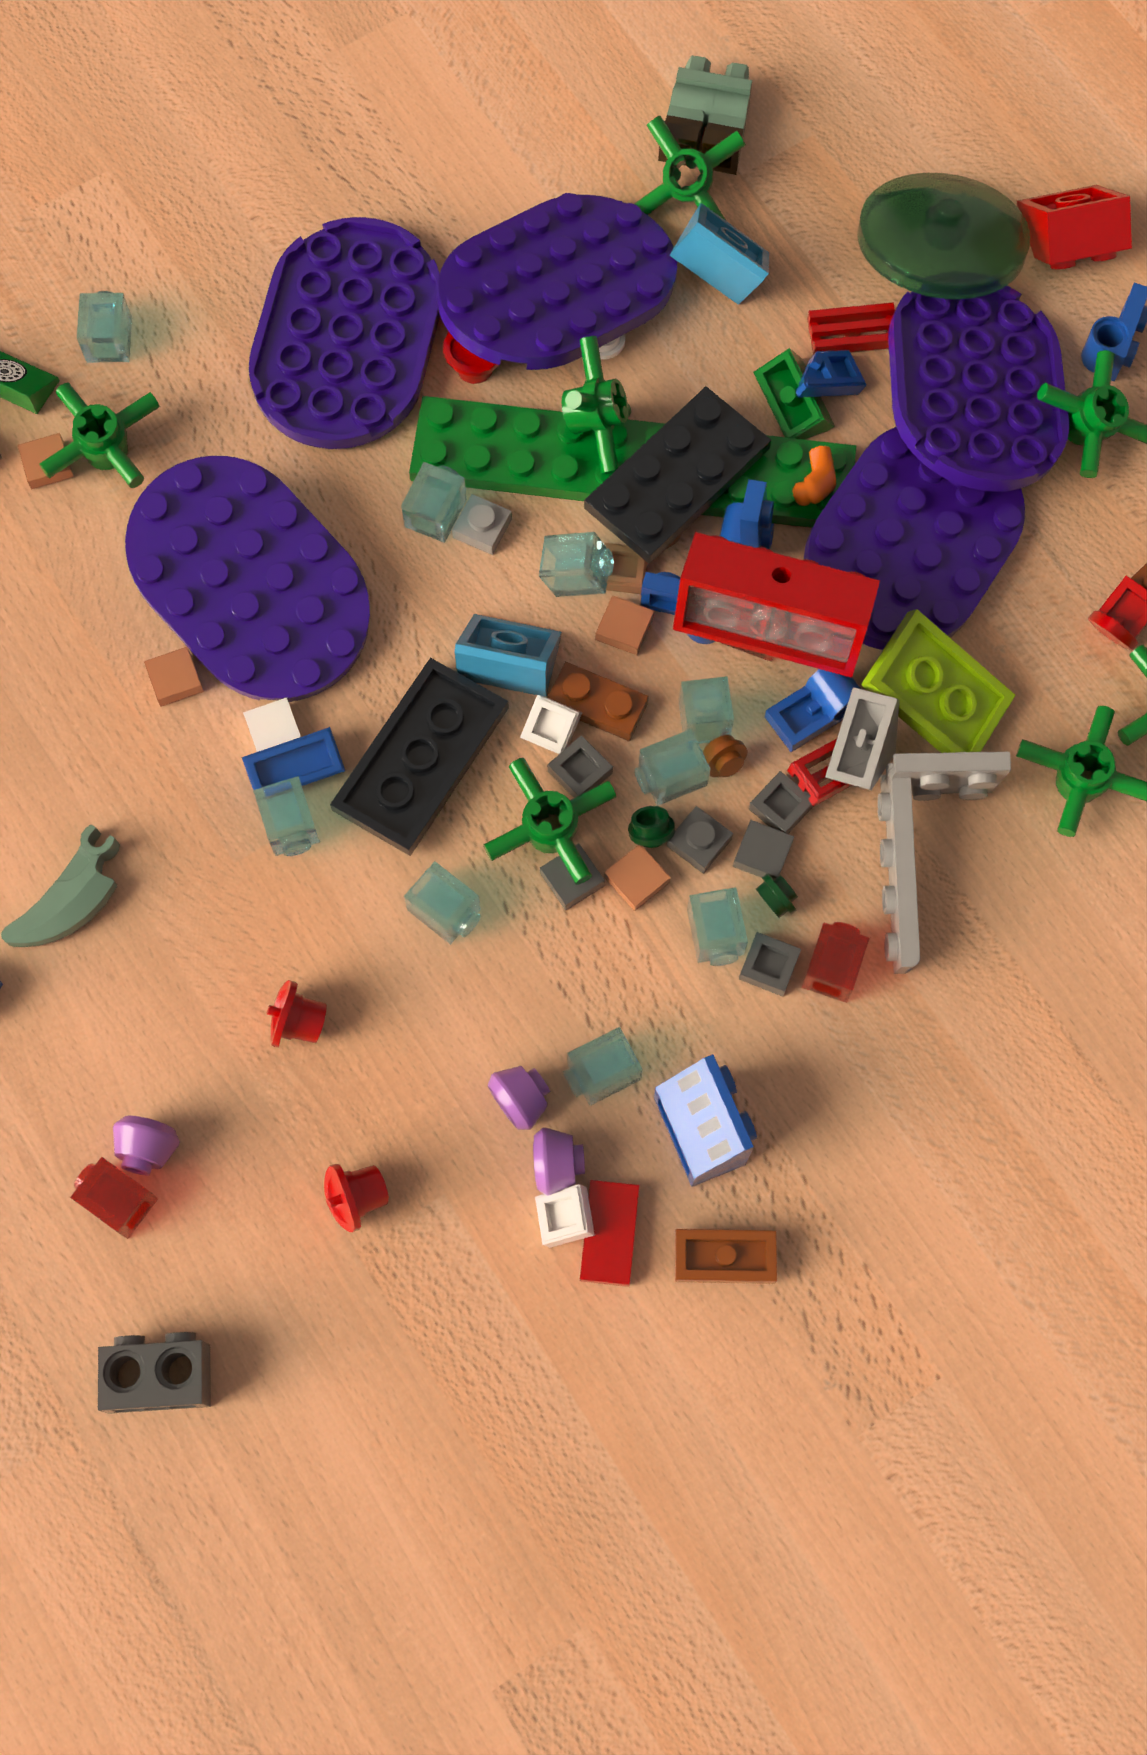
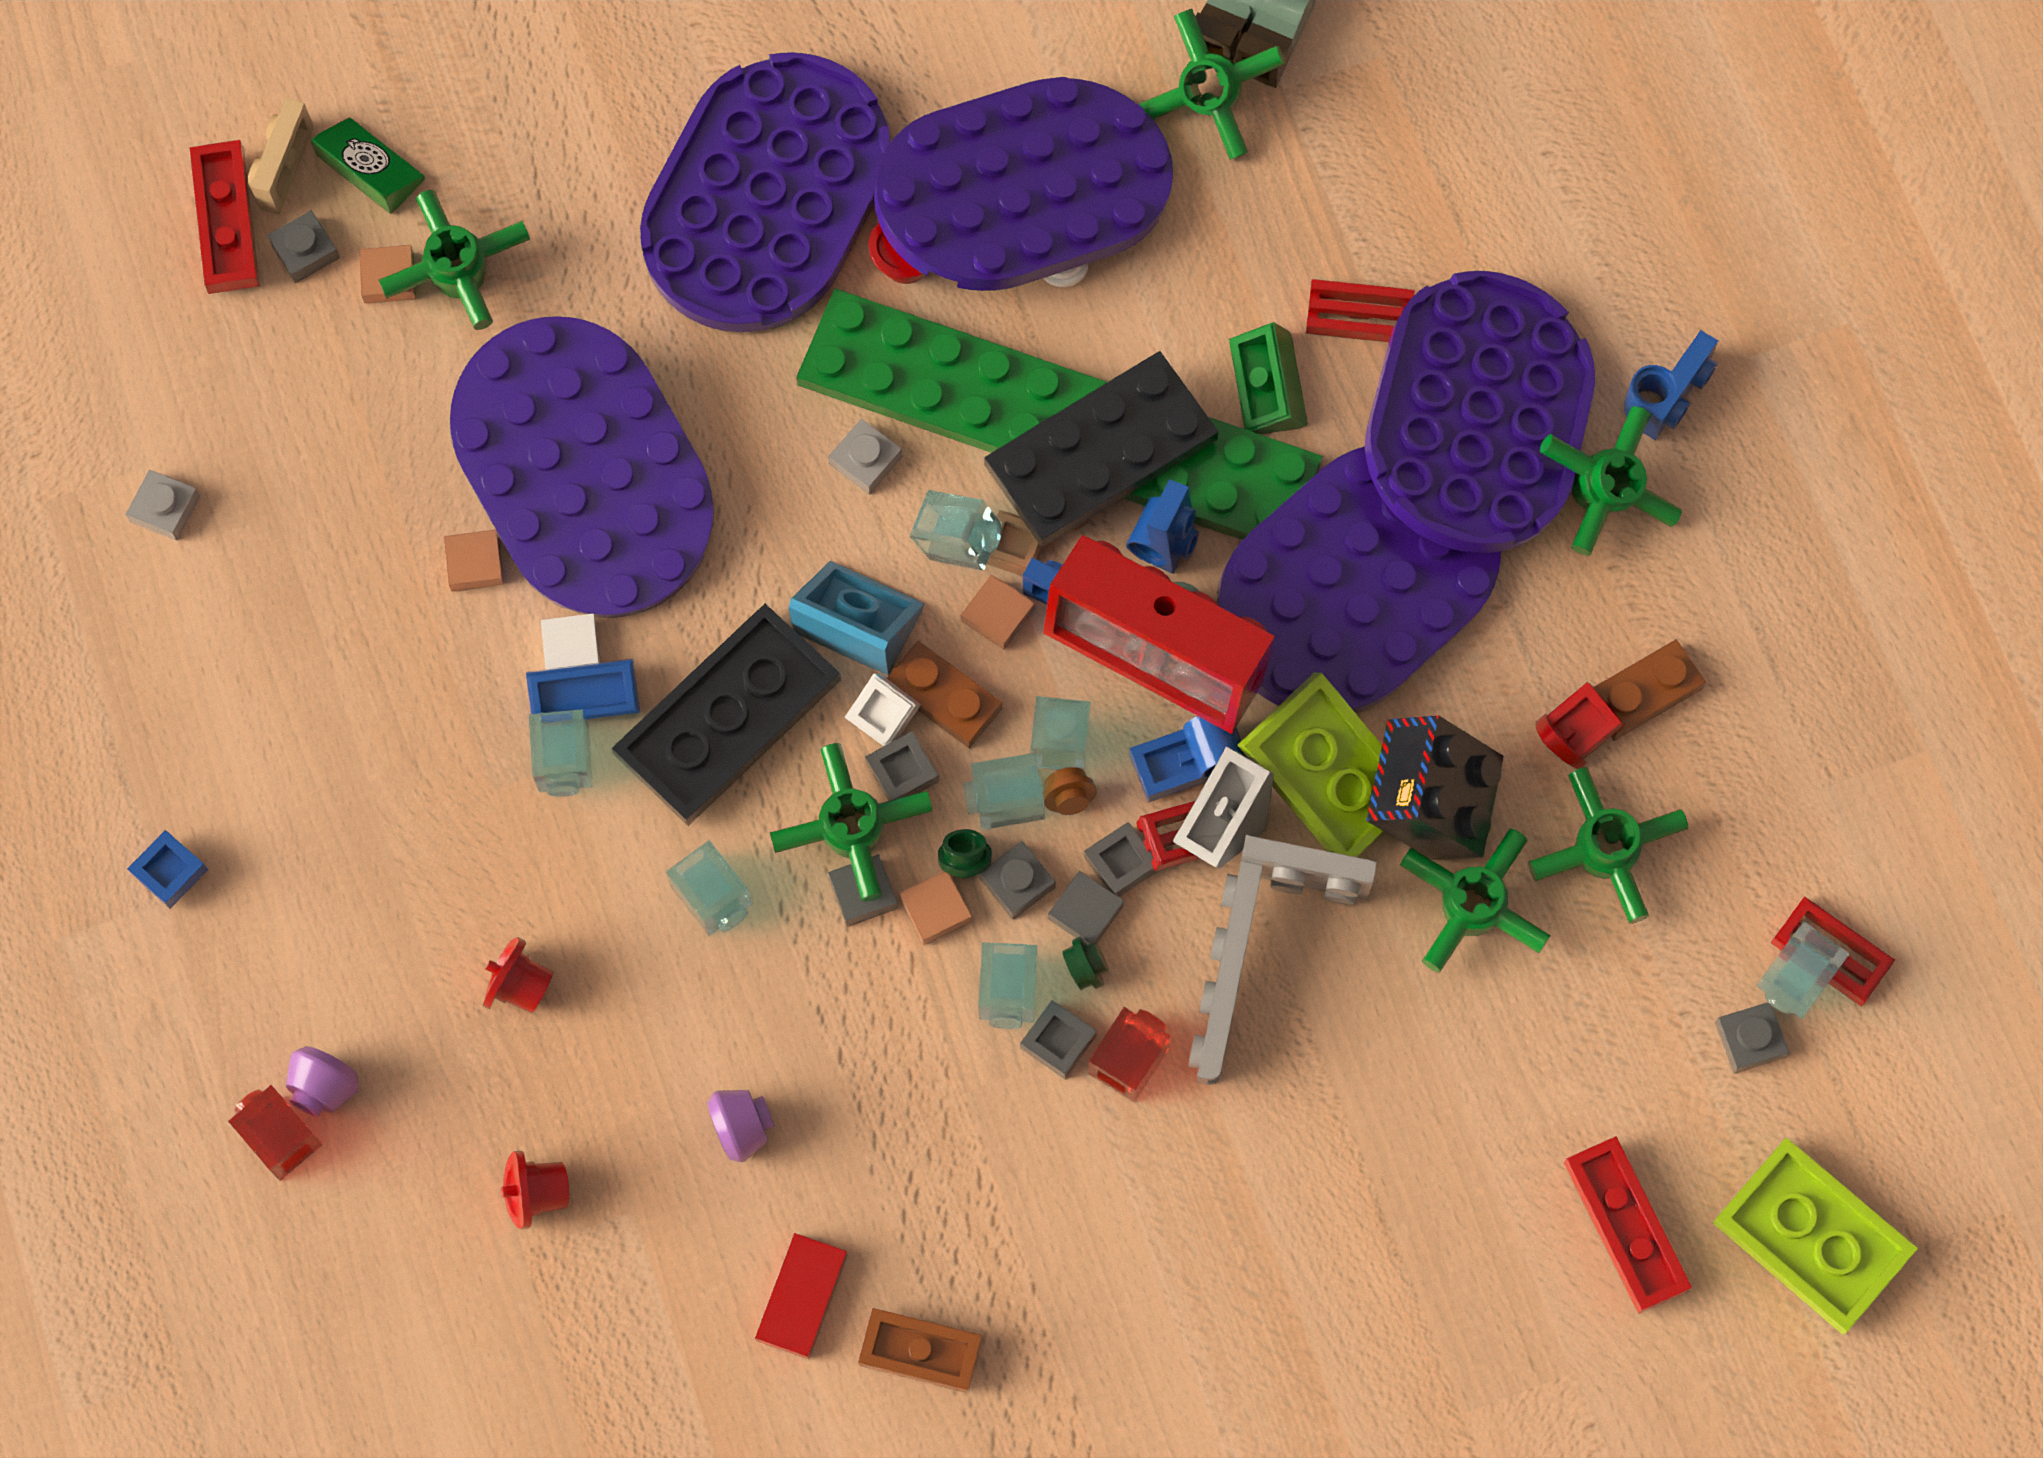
camera: 15 degrees right, 0 degrees up
(71, 899) = (302, 791): sand green piece -> none
(104, 327) = (489, 128): clear light blue brick -> none
(154, 1387) = (271, 1344): dark grey brick -> none
(434, 501) = (816, 418): clear light blue brick -> none
(556, 1160) = (761, 1203): medium lavender cone -> none
(564, 1216) = (756, 1265): white tile -> none
(596, 405) = (1025, 349): green bar -> none
(602, 1067) = (838, 1112): clear light blue brick -> none
(705, 1120) = (930, 1199): slope -> none
(721, 255) = (1227, 188): dark azure slope -> none
(821, 479) = (1261, 493): orange arm -> none
(831, 375) = (1314, 364): blue tile -> none
(943, 235) = (1494, 221): clear green dish -> none
(1031, 684) = (1435, 787): none -> black brick
(1078, 225) = (1659, 239): red slope -> none

